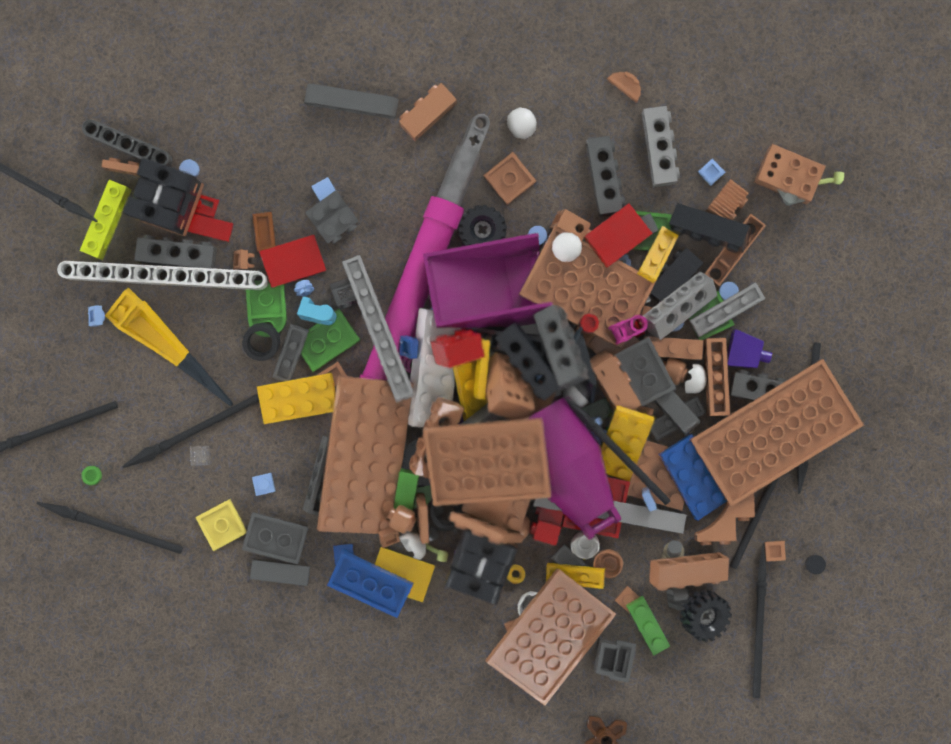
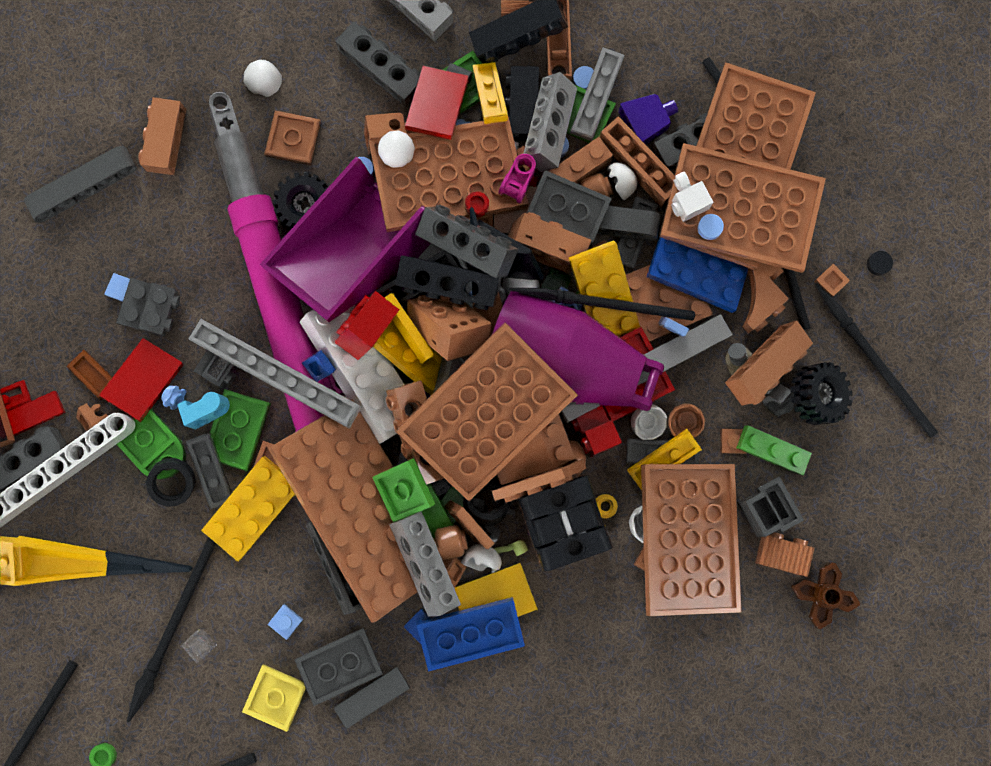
camera: 35 degrees left, 5 degrees down
(376, 521) = (425, 564): none -> light grey brick
(399, 466) = (403, 490): none -> bright green plate
(600, 693) = (785, 555): none -> nougat brick
(721, 458) = (710, 226): none -> light blue tile
(722, 432) = (691, 199): none -> white brick
(752, 461) = (763, 208): none -> nougat plate

